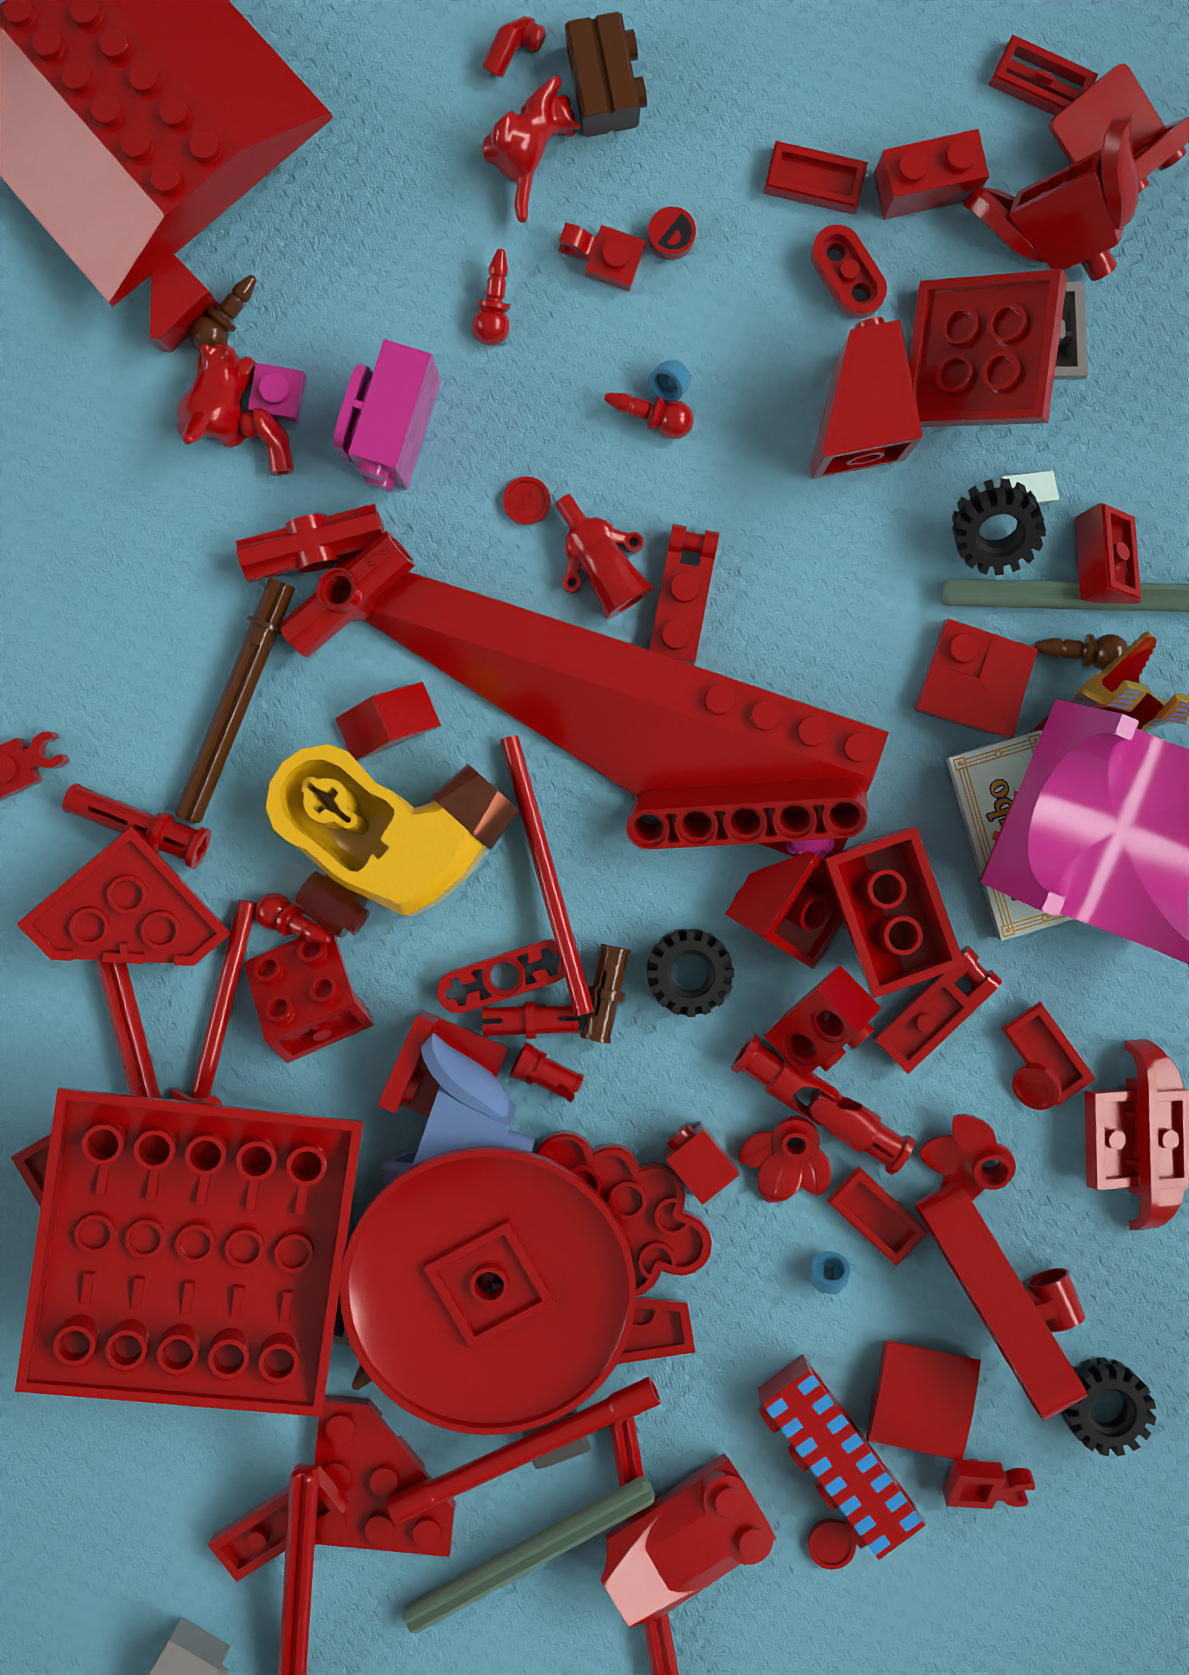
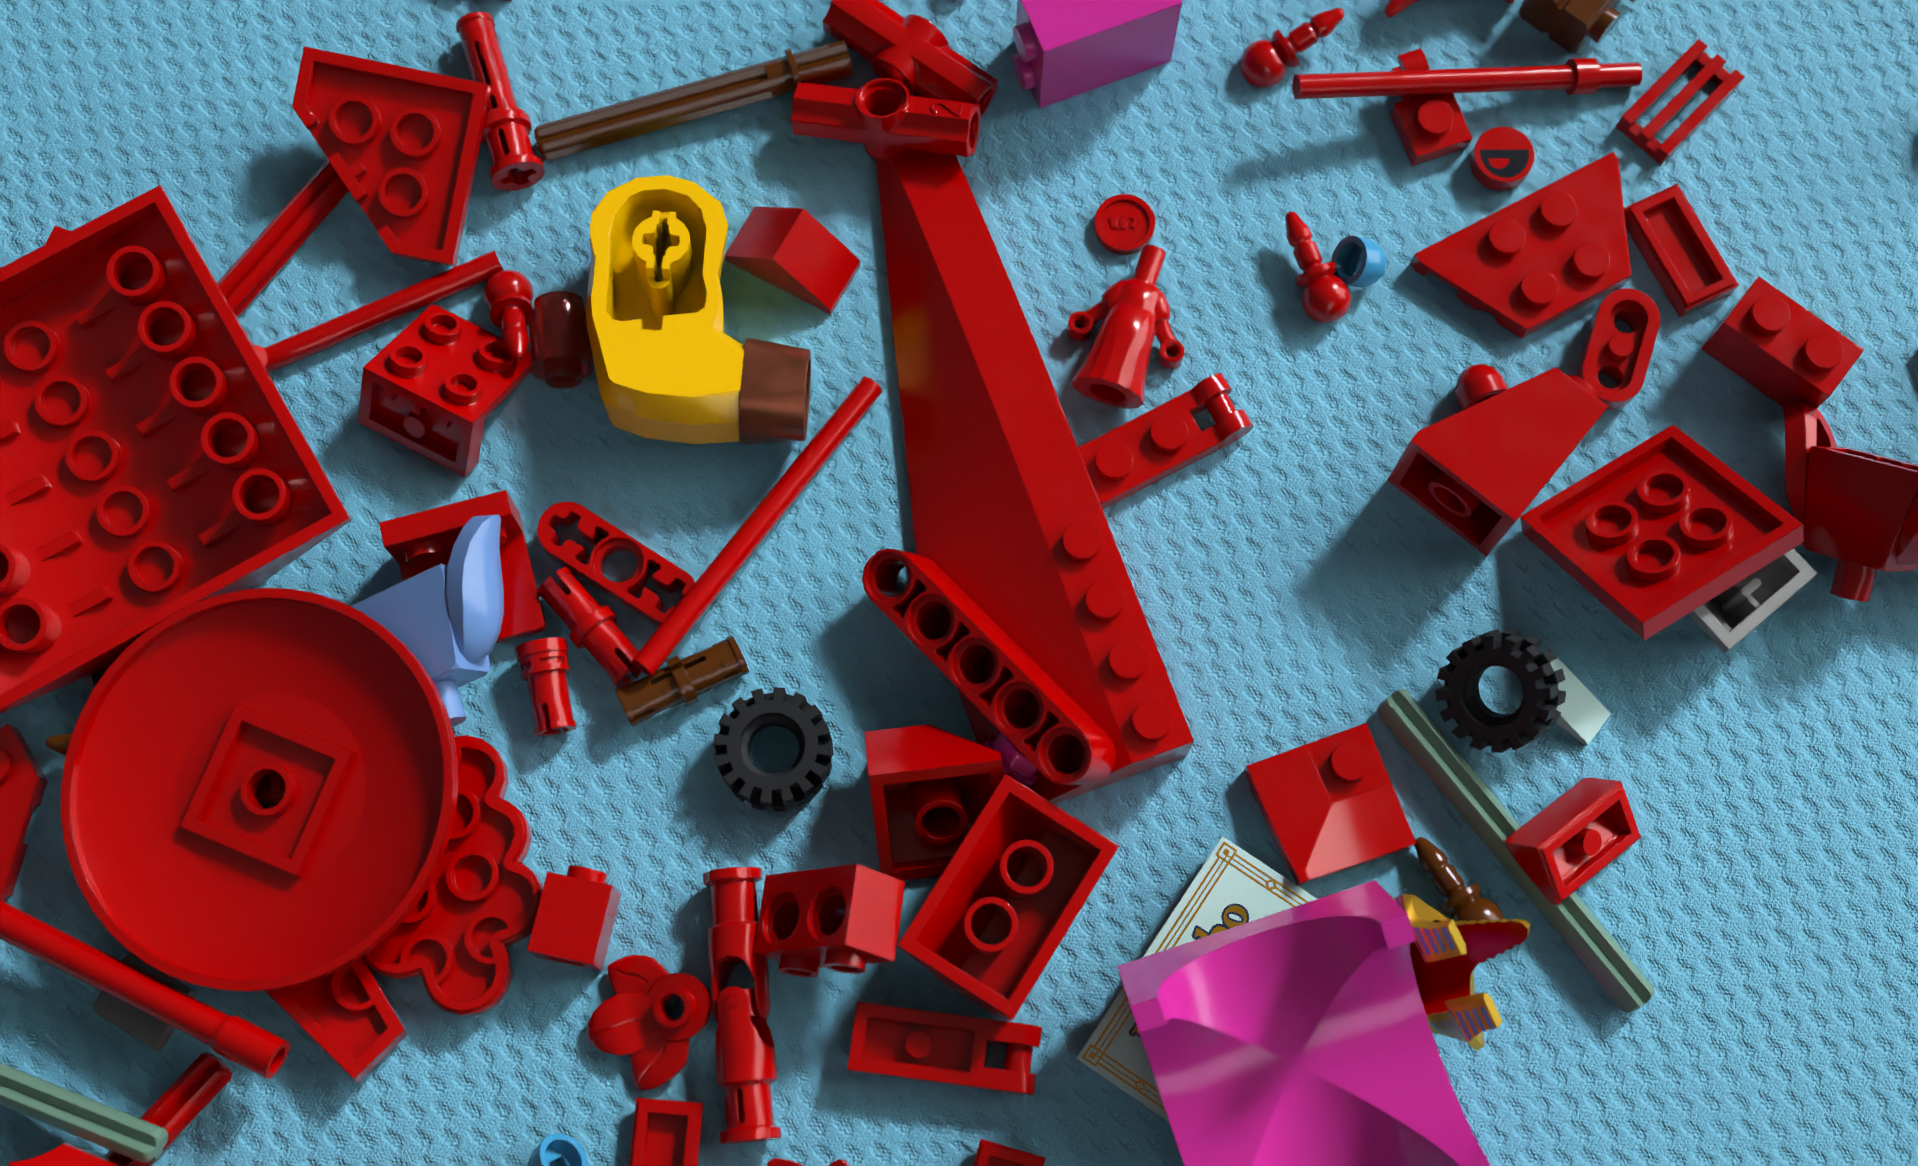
camera: 50 degrees right, 15 degrees down
(657, 142) = (1576, 77): none -> red bar
(719, 50) = (1709, 70): none -> red tile
(749, 262) = (1540, 252): none -> red wing
(805, 376) = (1478, 384): none -> red hinge

